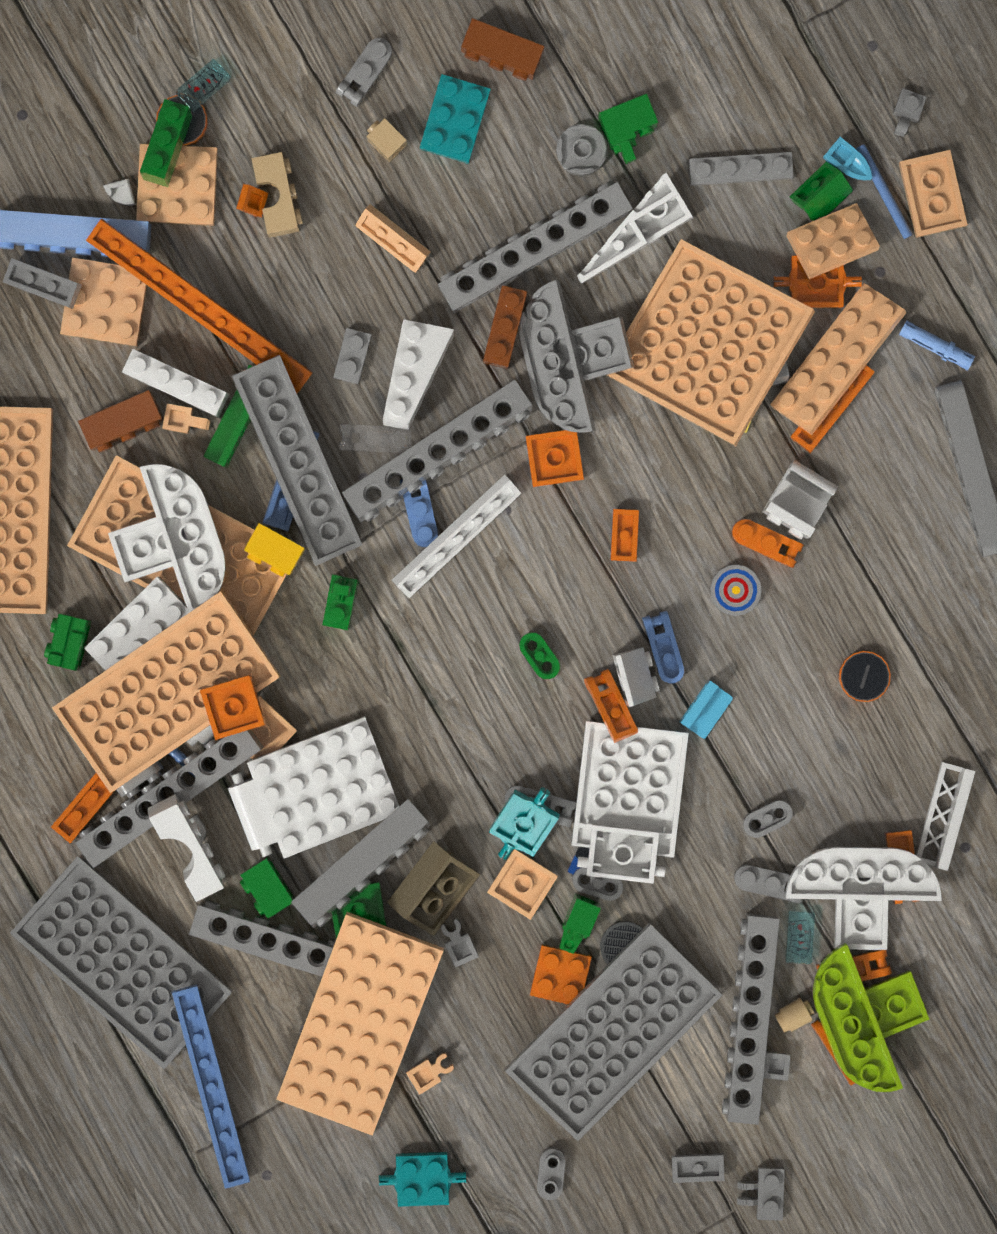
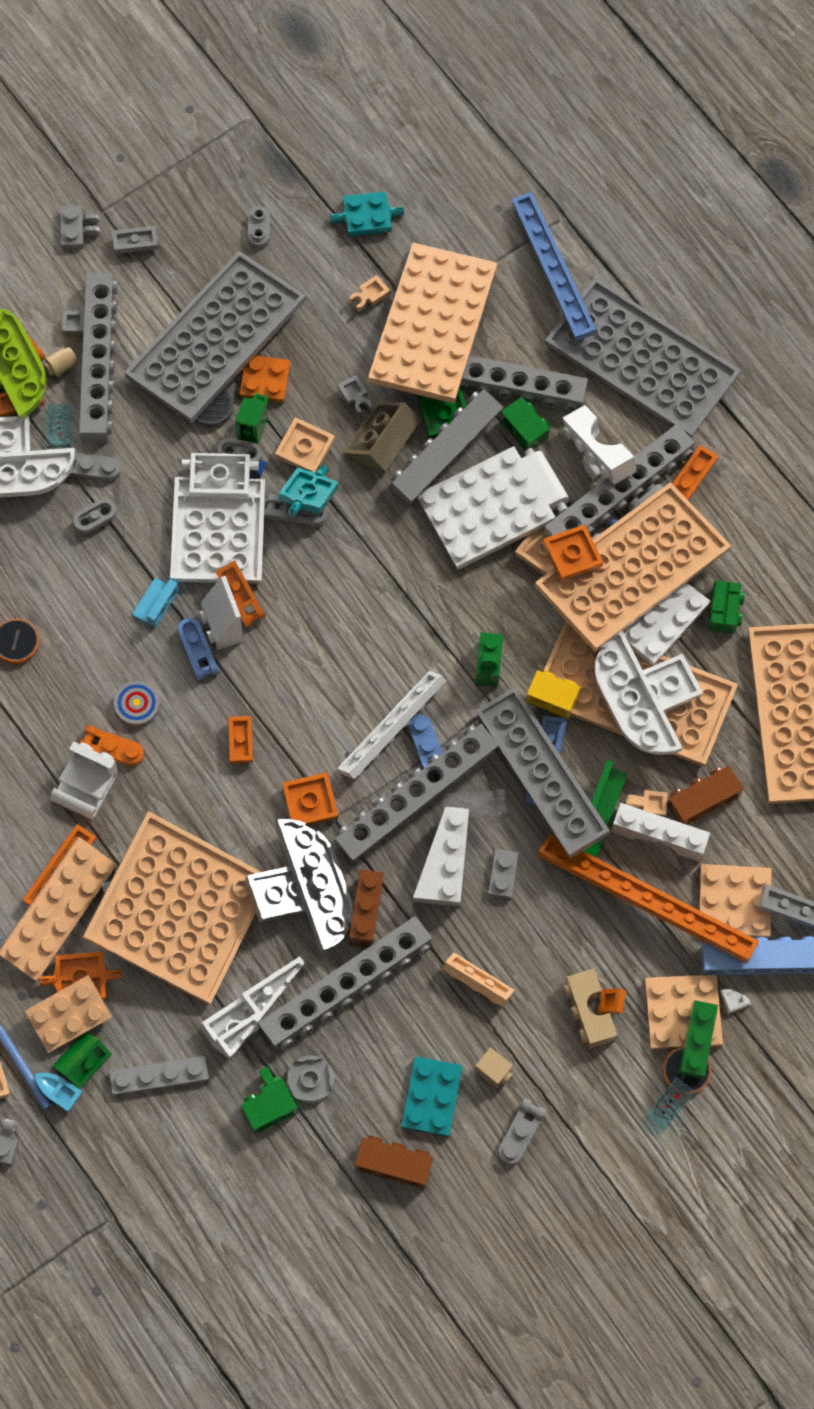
camera: 170 degrees right, 20 degrees down
(539, 656) = (308, 632): green plate -> none

